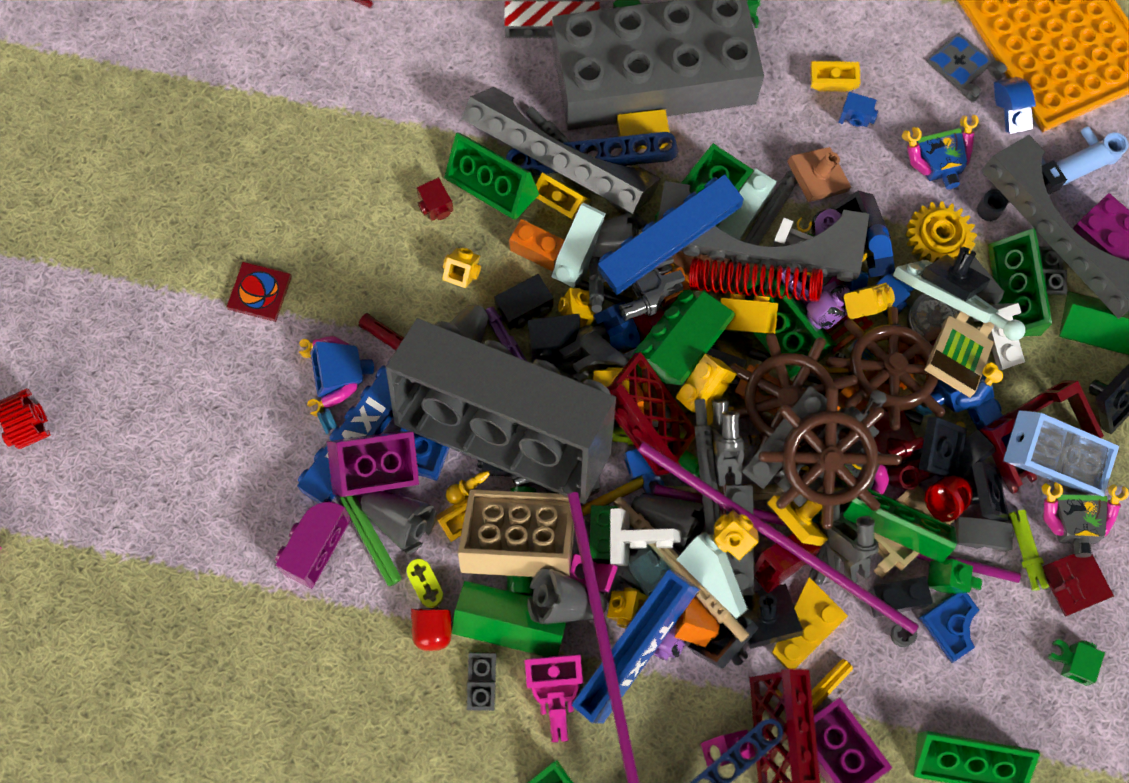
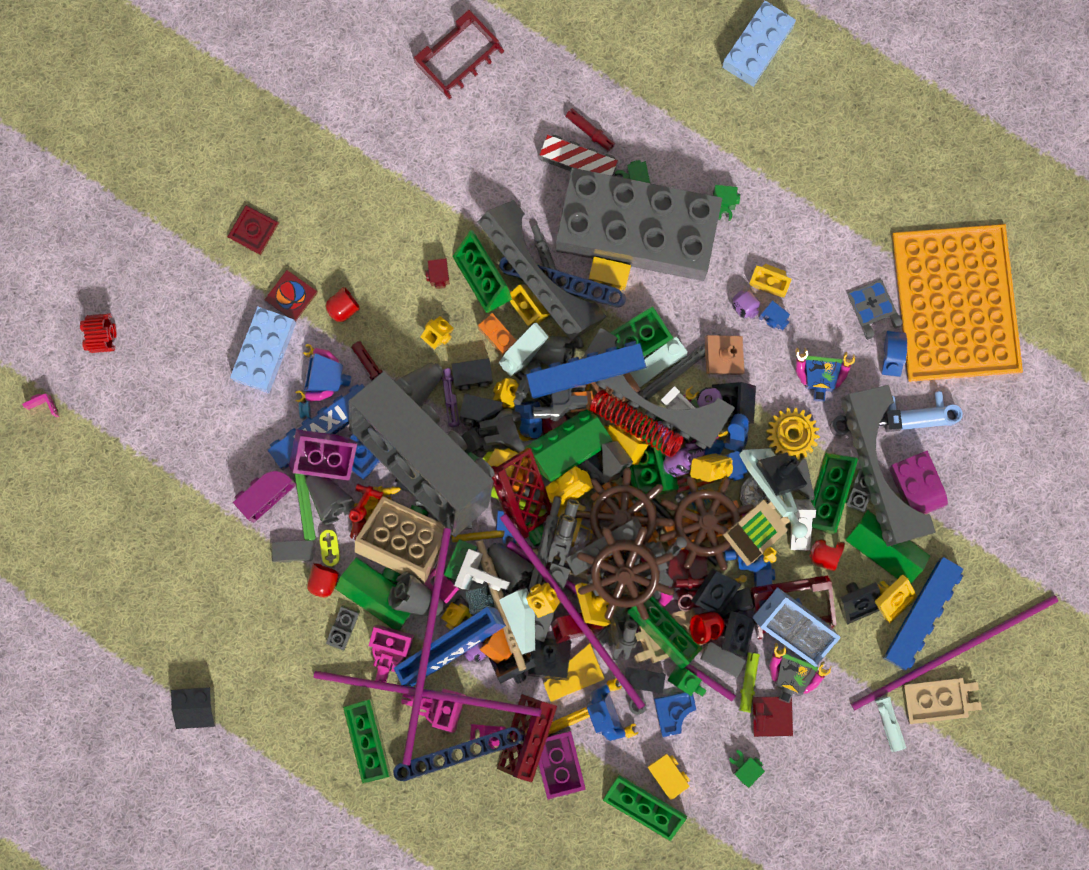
camera: 25 degrees right, 10 degrees up
(182, 231) = (253, 230): none -> dark red tile
(246, 366) = (263, 350): none -> light blue brick
(328, 278) = (342, 305): none -> red helmet
(376, 604) = (292, 551): none -> dark grey slope
(448, 518) = (359, 512): none -> red pin
(632, 720) = (428, 693): none -> magenta piece
(655, 736) = (440, 713): none -> dark pink brick
(748, 335) = (614, 461): none -> dark grey slope
(818, 109) = (746, 304): none -> medium lavender head
(869, 658) = (604, 713): none -> blue torso
(985, 709) = (668, 776): none -> yellow brick
(1049, 359) = (826, 556): none -> red helmet

